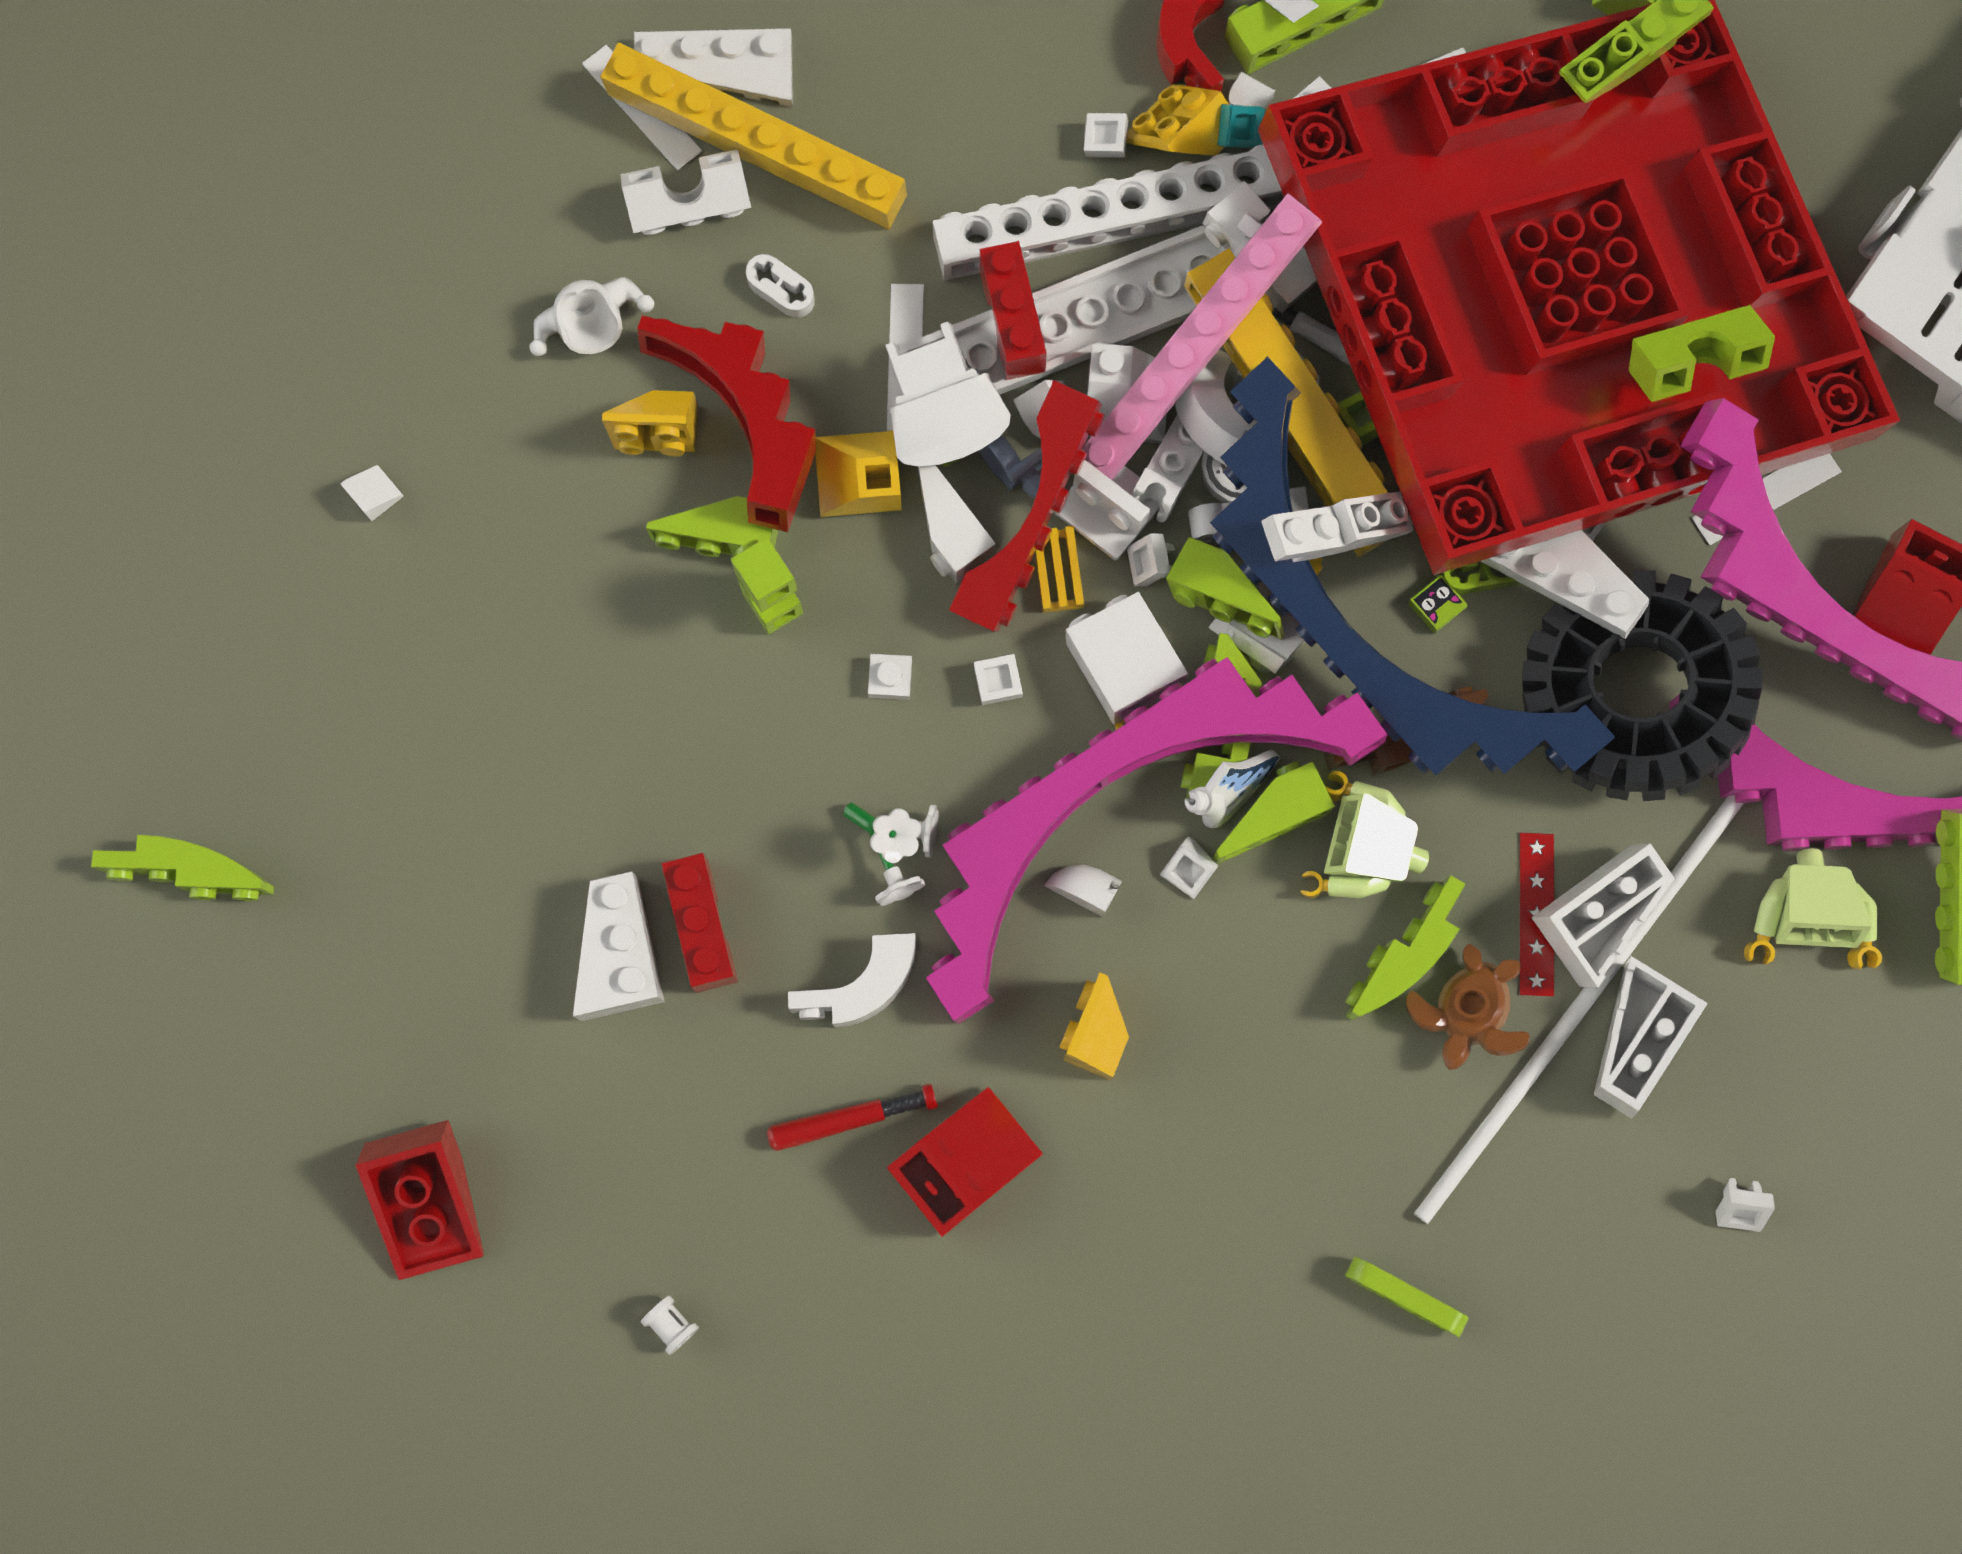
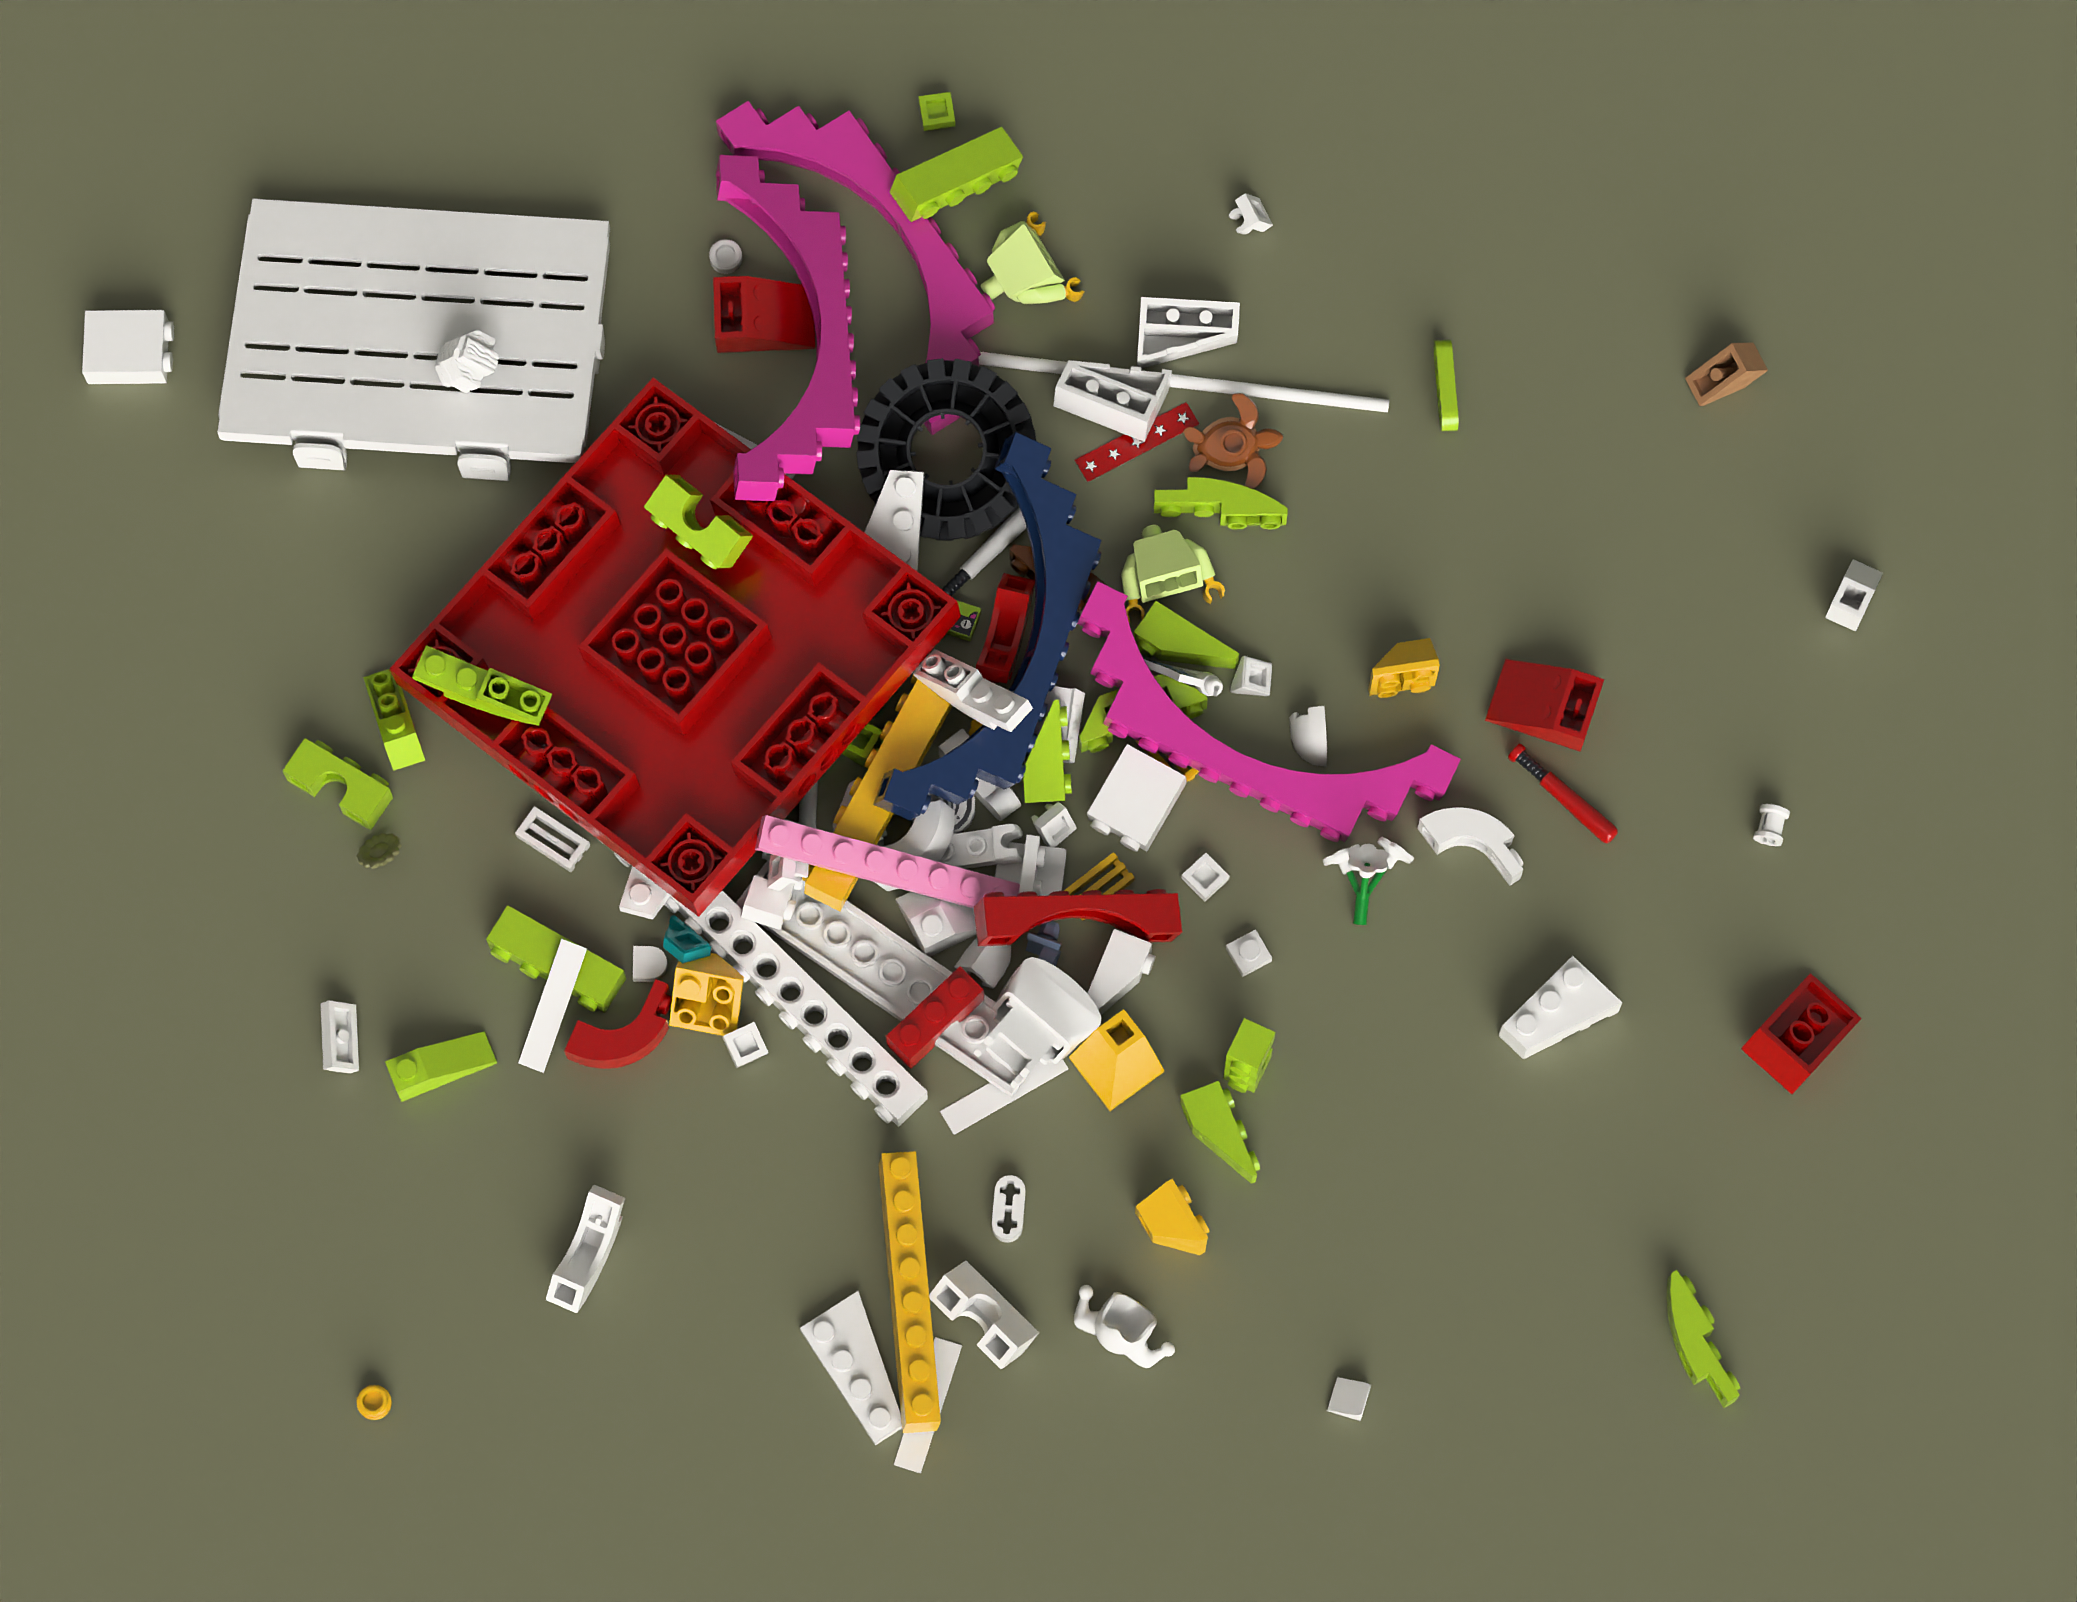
camera: 120 degrees left, 5 degrees down
(699, 923) = (1499, 970): red arch -> none
(760, 401) = (1097, 1197): red arch -> none
(1390, 630) = (1006, 628): none -> red arch
(1491, 653) = (988, 551): none -> white piece

